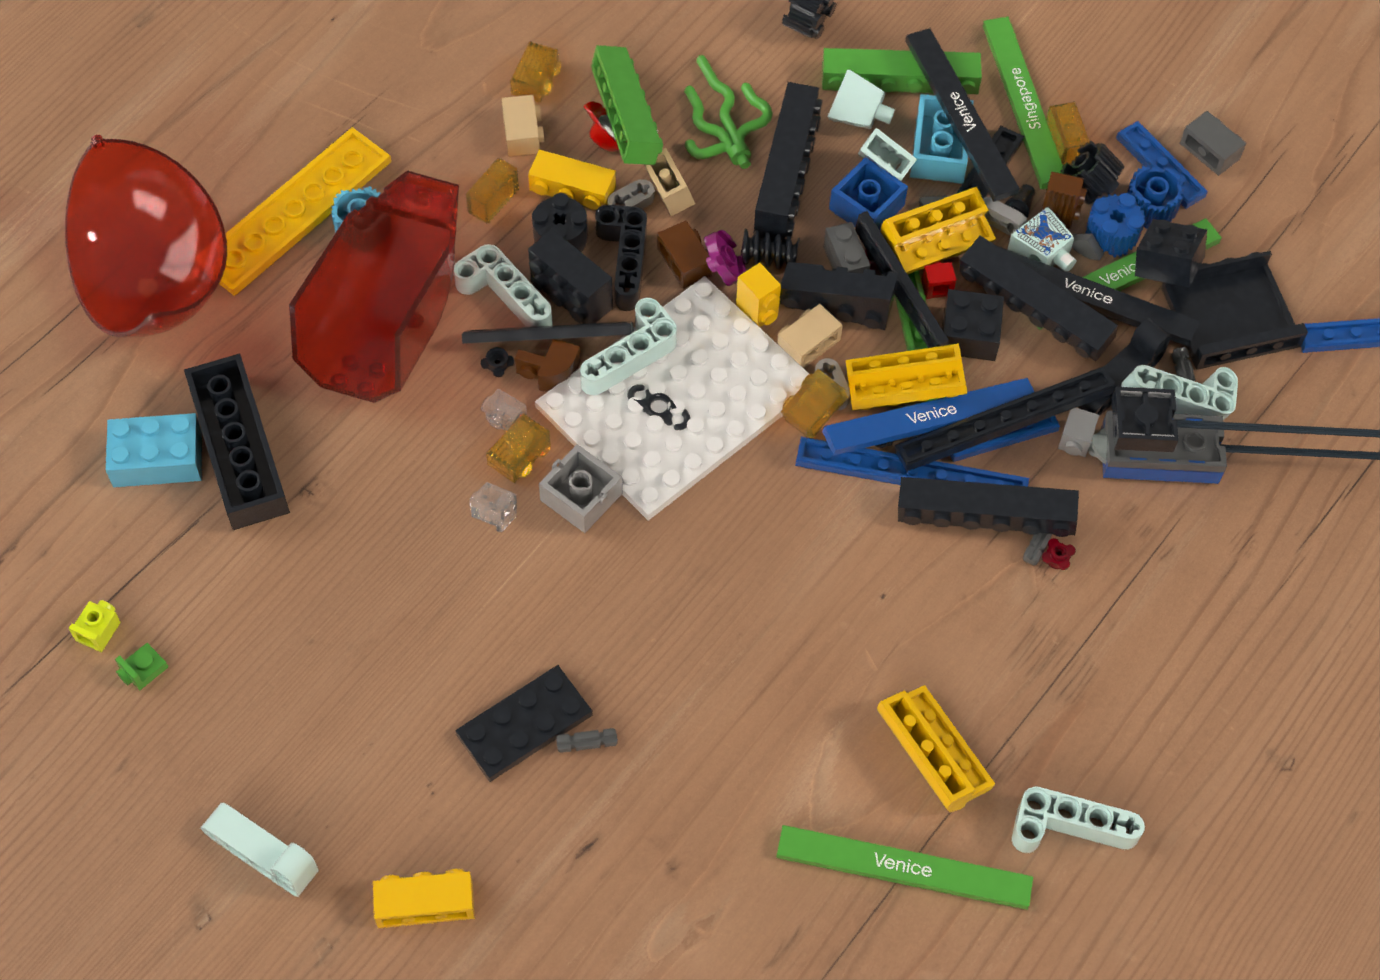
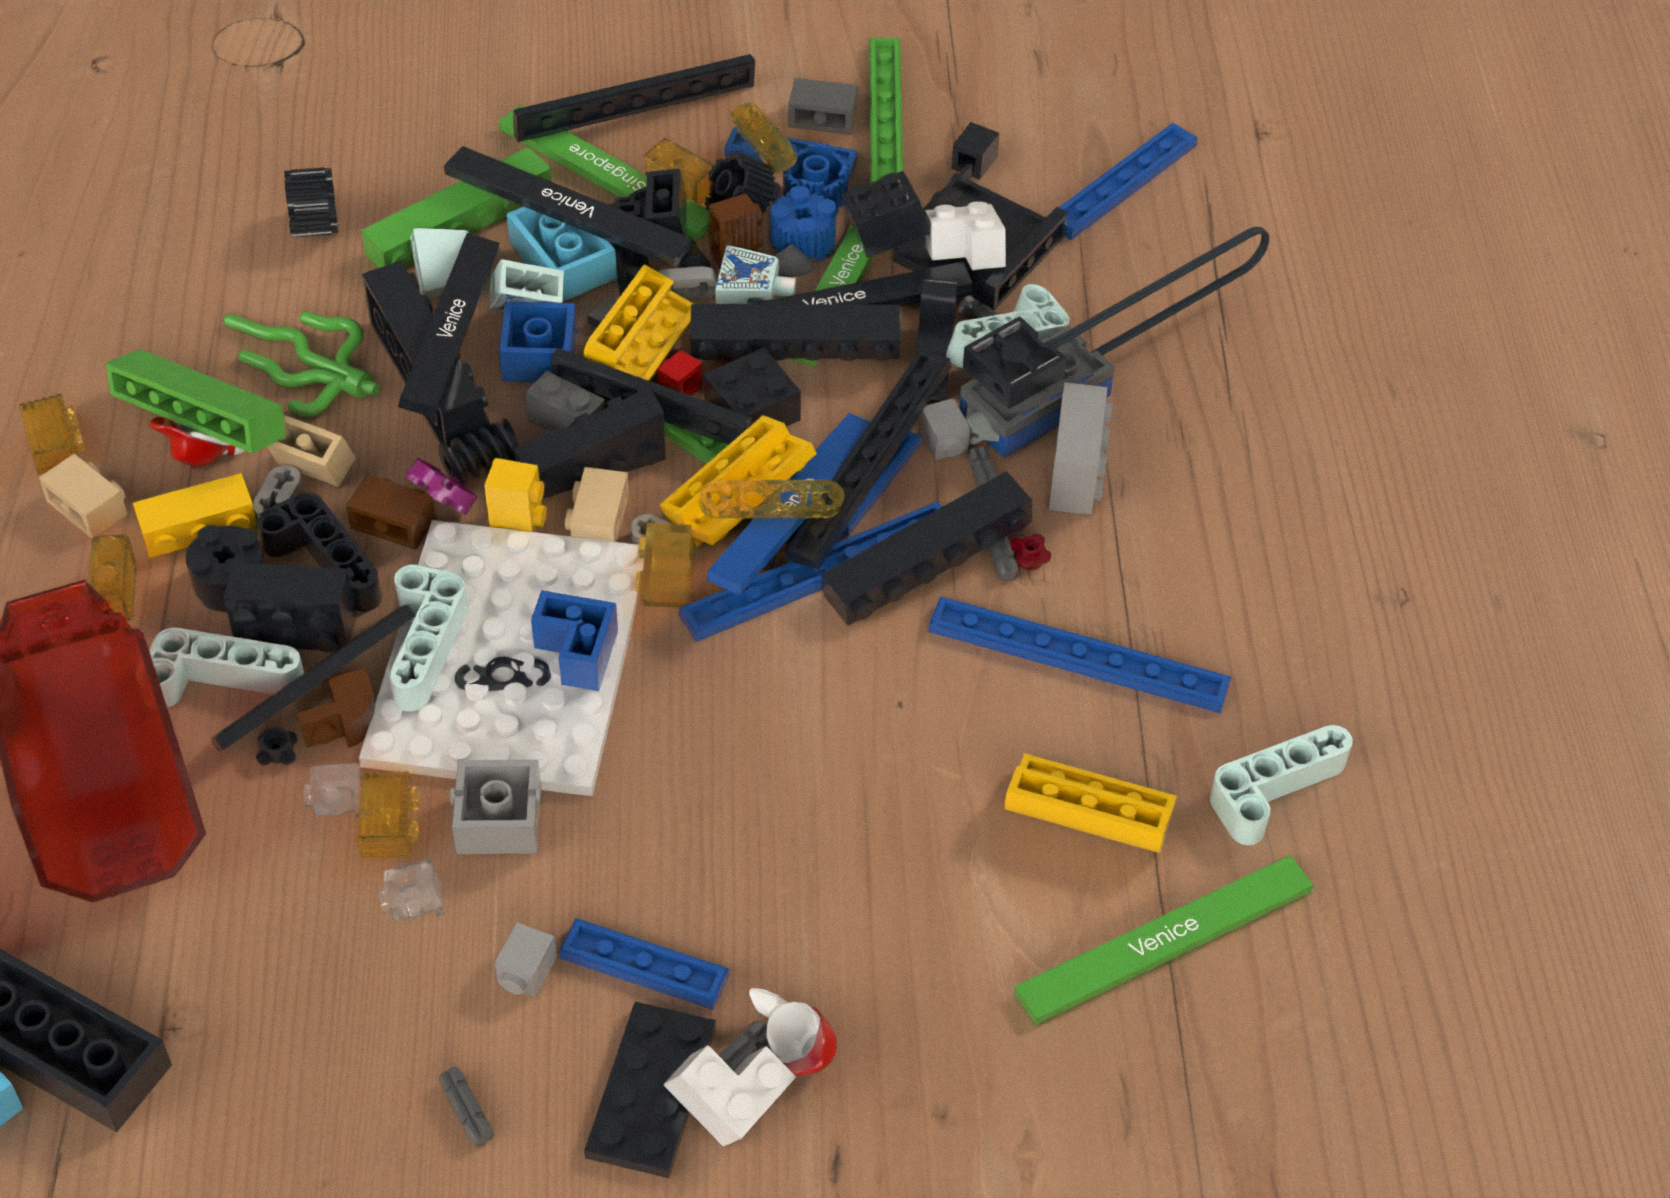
camera: 40 degrees left, 10 degrees down
(417, 655) = (466, 1106): none -> dark grey axle
(518, 594) = (525, 960): none -> light grey brick
(555, 767) = (728, 1099): none -> white brick
(585, 646) = (644, 963): none -> blue tile
(626, 755) = (796, 1033): none -> white hair
(717, 414) = (580, 631): none -> blue brick
(809, 152) = (448, 326): none -> black tile
(911, 401) = (772, 505): none -> clear yellow beam
(1025, 150) = (659, 202): none -> black brick
(1027, 648) = (1080, 654): none -> blue tile
(1081, 475) = (983, 466): none -> dark grey axle
(1087, 59) = (633, 98): none -> black tile
(1141, 142) = (763, 137): none -> clear yellow beam
(1150, 507) = (1079, 449): none -> light grey brick
(1217, 302) = (967, 233): none -> white brick
(1254, 175) = (885, 107): none -> bright green tile
(1290, 243) = (975, 147): none -> black brick

